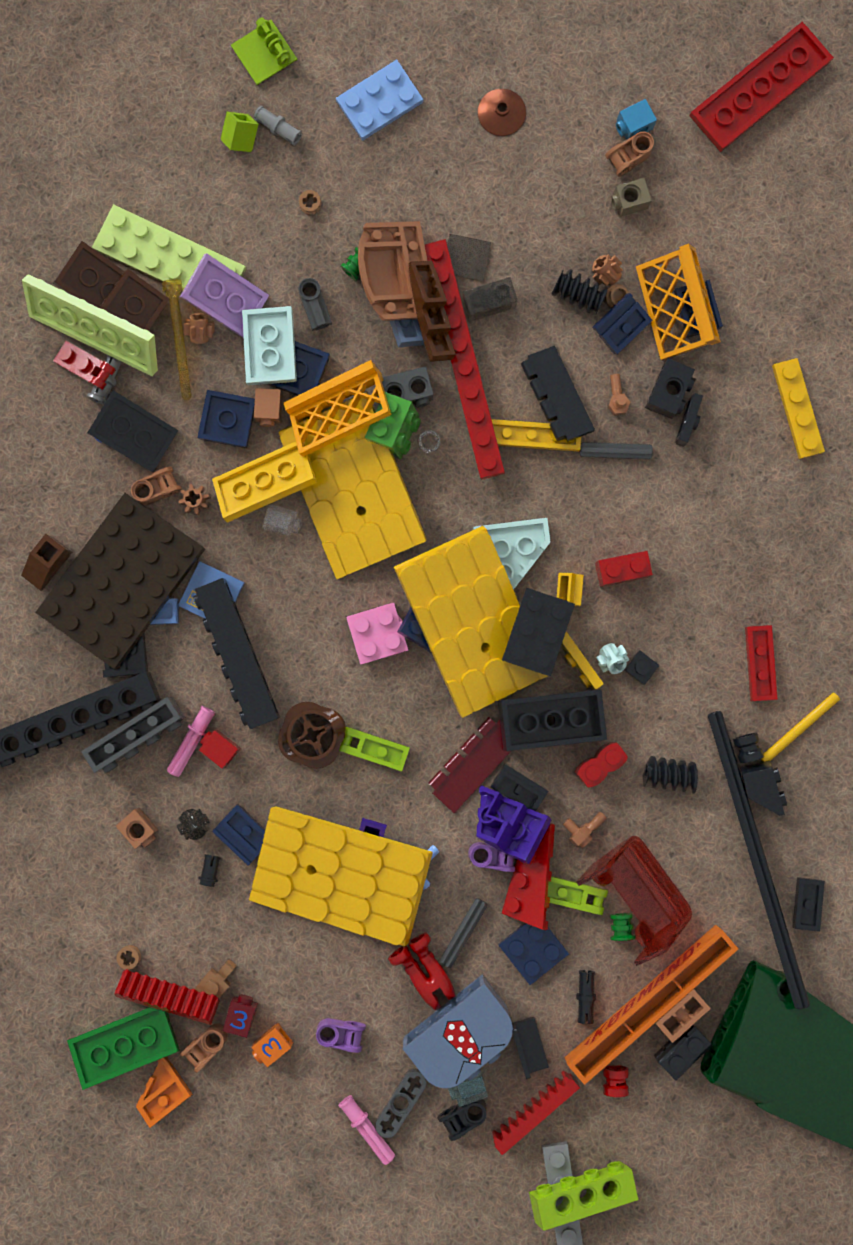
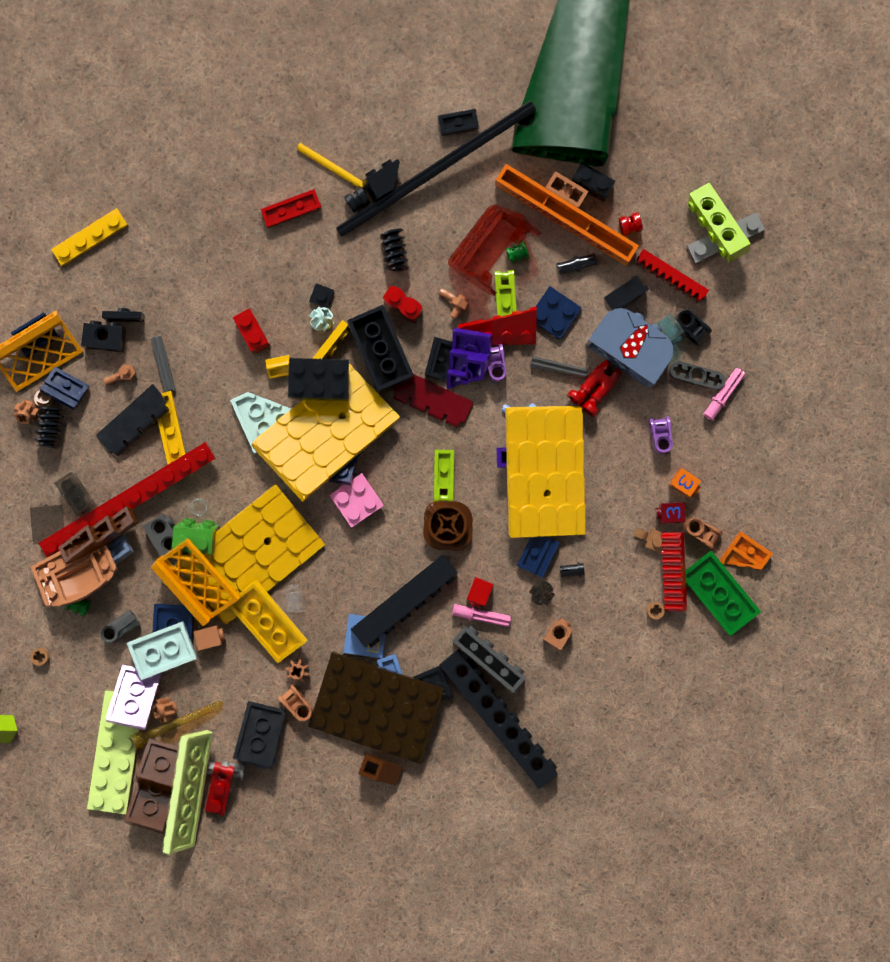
camera: 105 degrees left, 0 degrees up
(226, 419) = (228, 666): dark blue plate -> none

